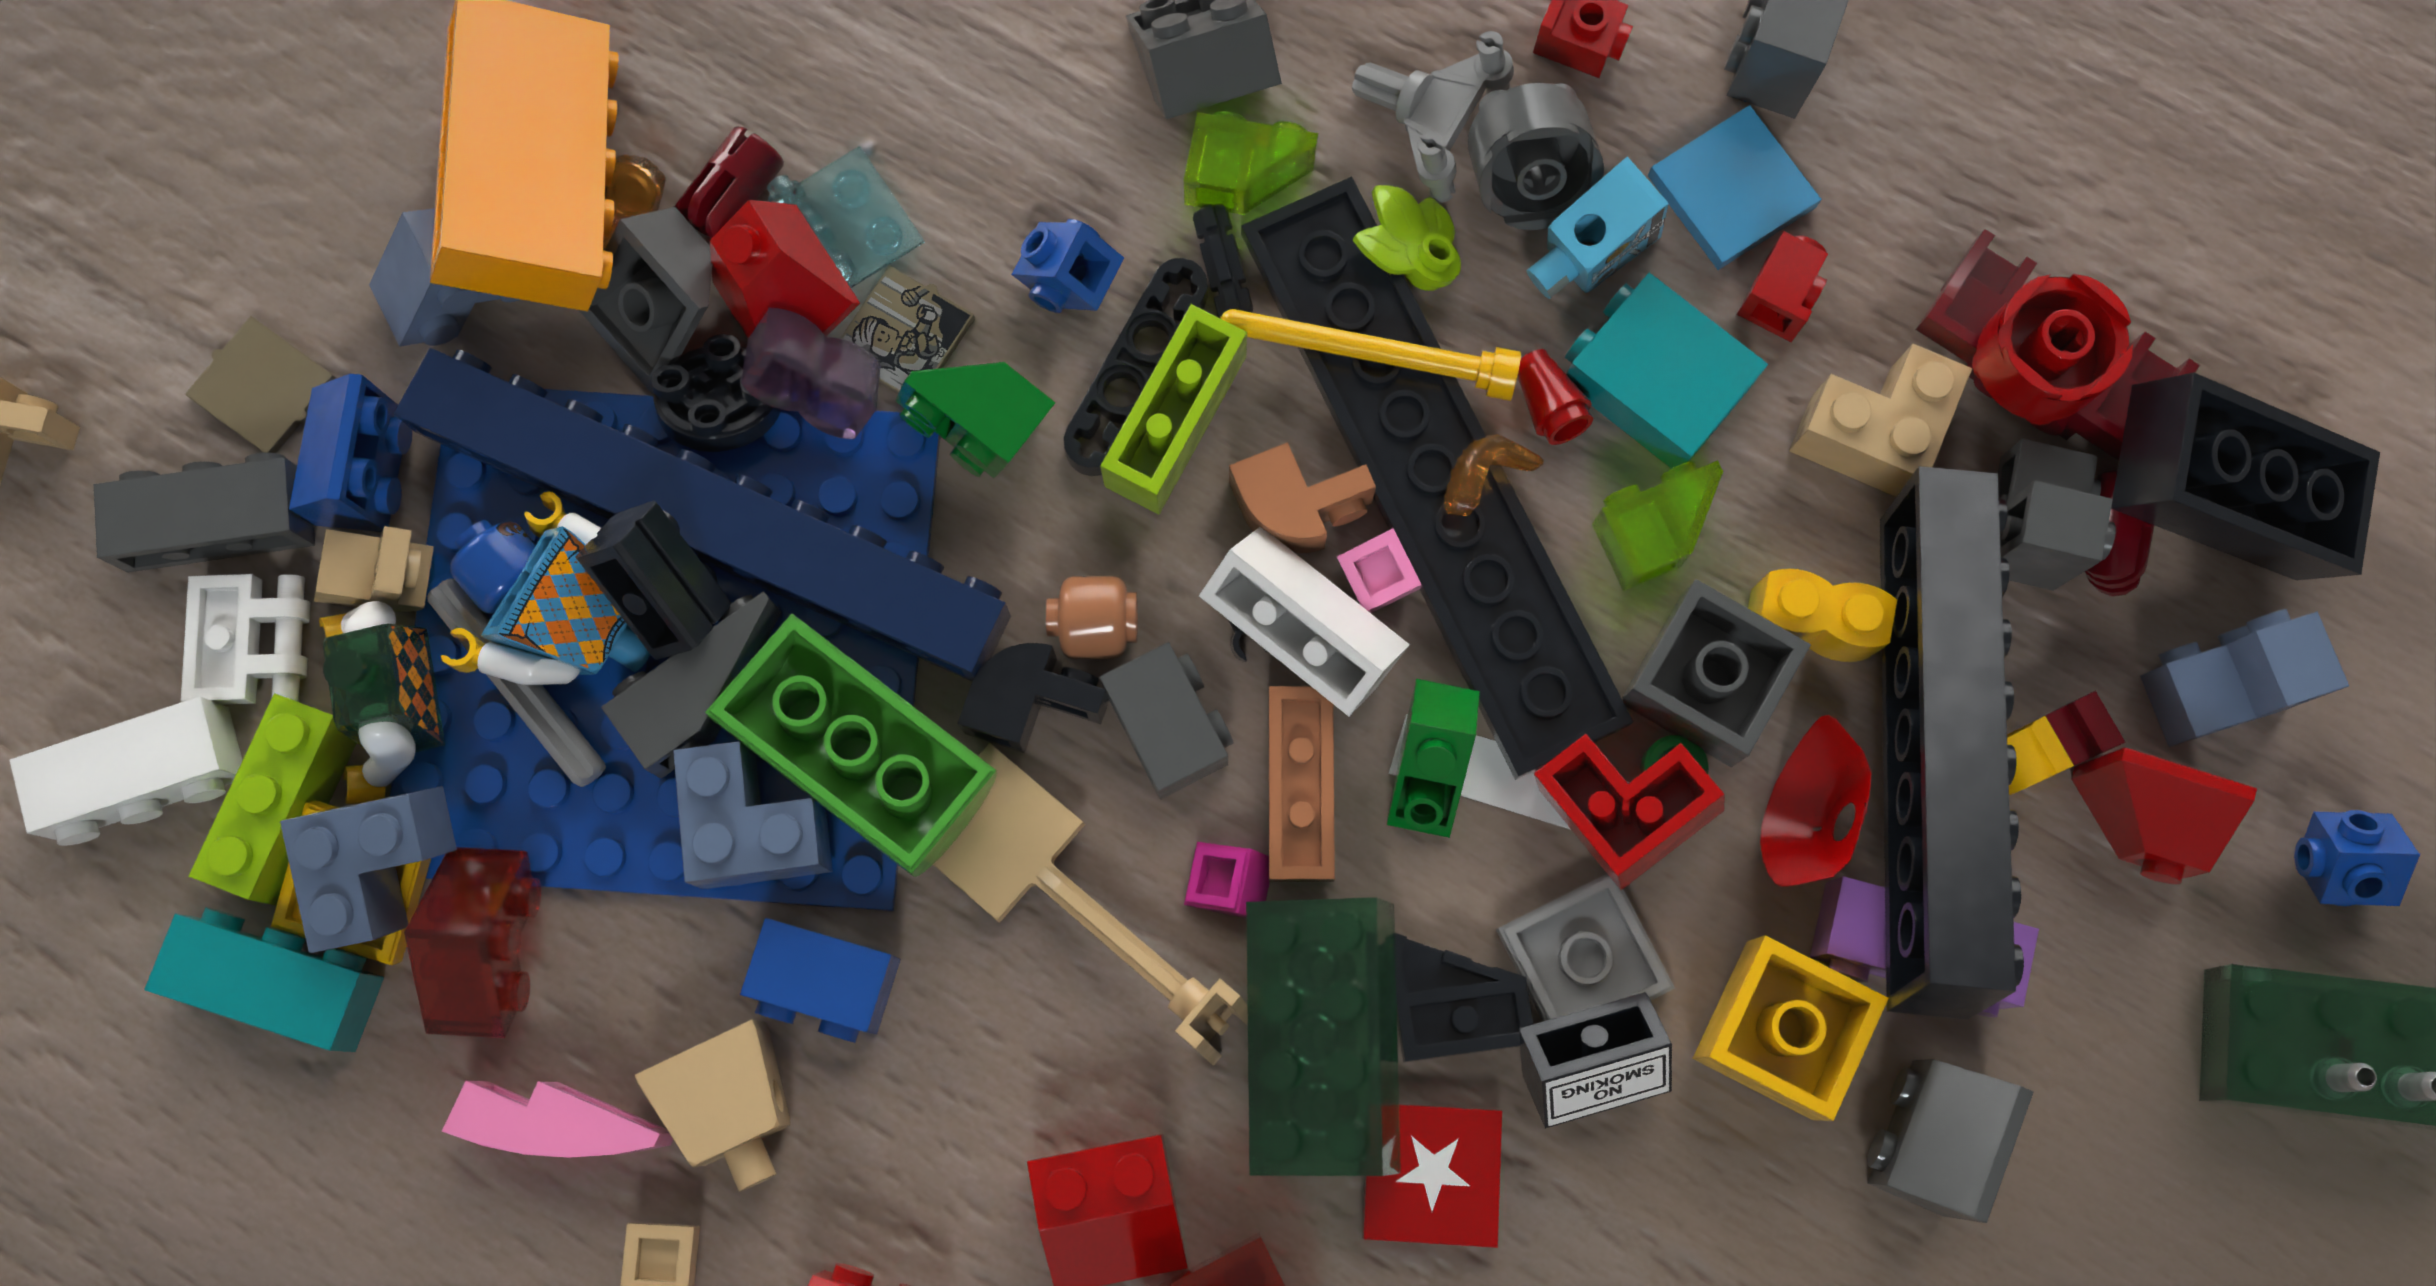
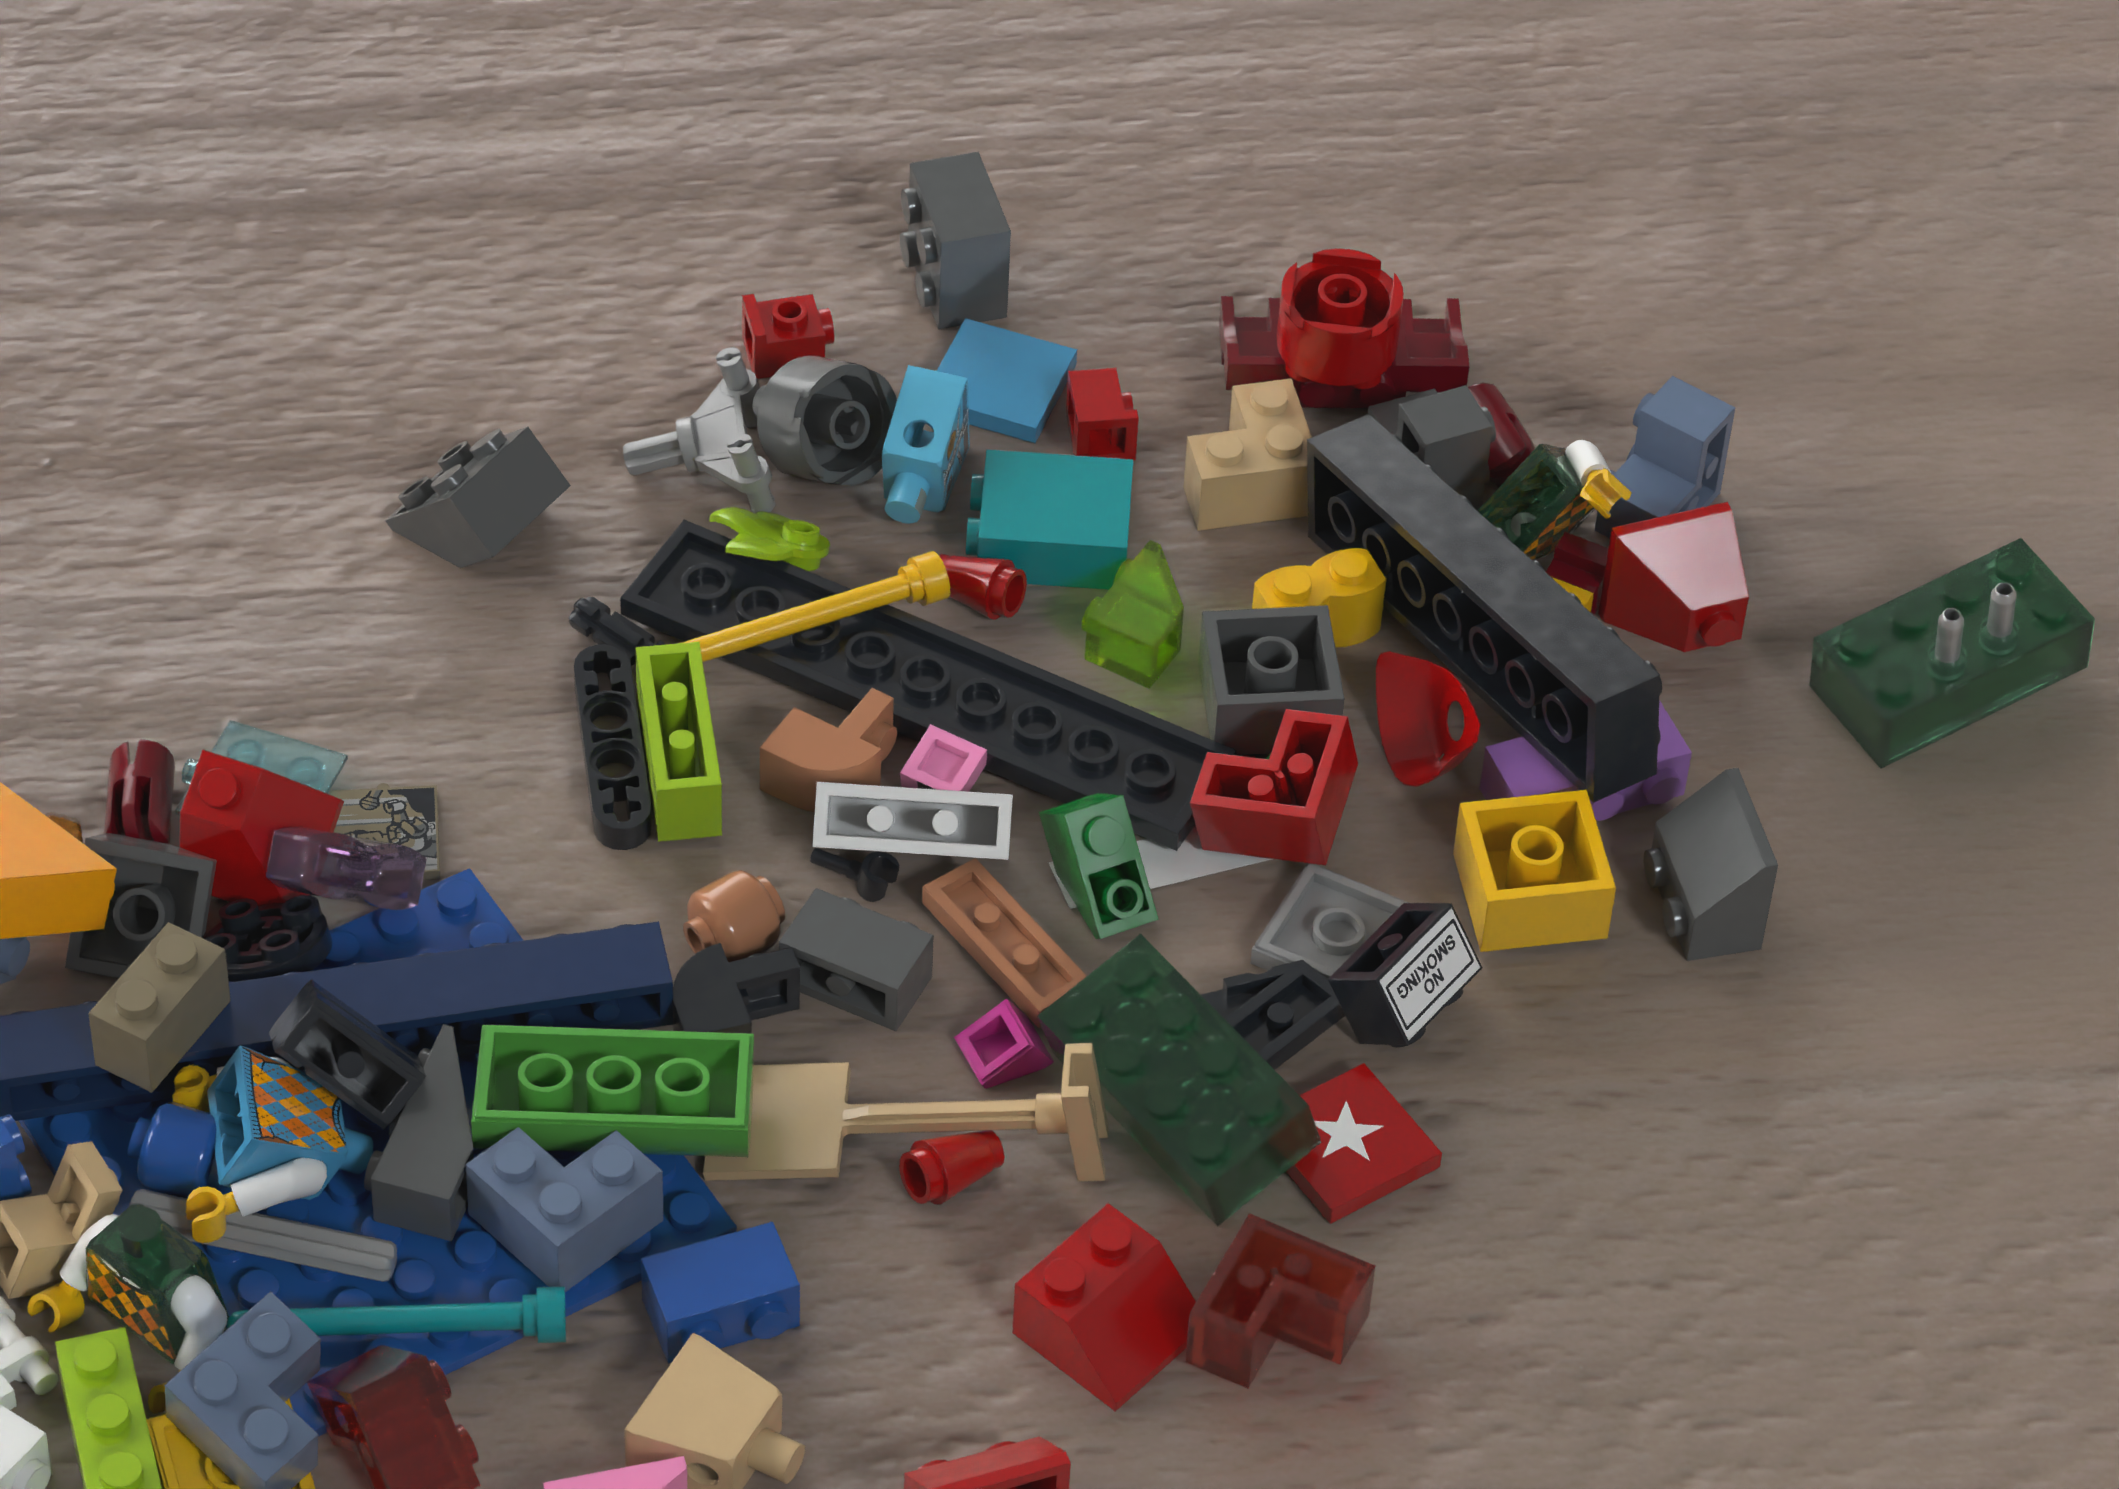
camera: 40 degrees left, 30 degrees down
(534, 441) = (159, 1007): none -> dark tan brick
(667, 903) = (537, 1315): none -> teal piece
(976, 409) = (513, 817): green slope -> none
(1066, 266) = (498, 694): blue brick -> none
(1090, 976) = (949, 1164): none -> red cone
(1244, 160) = (581, 556): clear neon green slope -> none
(1472, 467) = (965, 638): clear orange hair -> none
(2098, 653) = (1553, 496): none -> clear green torso
(2245, 478) = (1551, 335): black brick -> none
(2356, 858) = (1846, 539): blue brick -> none

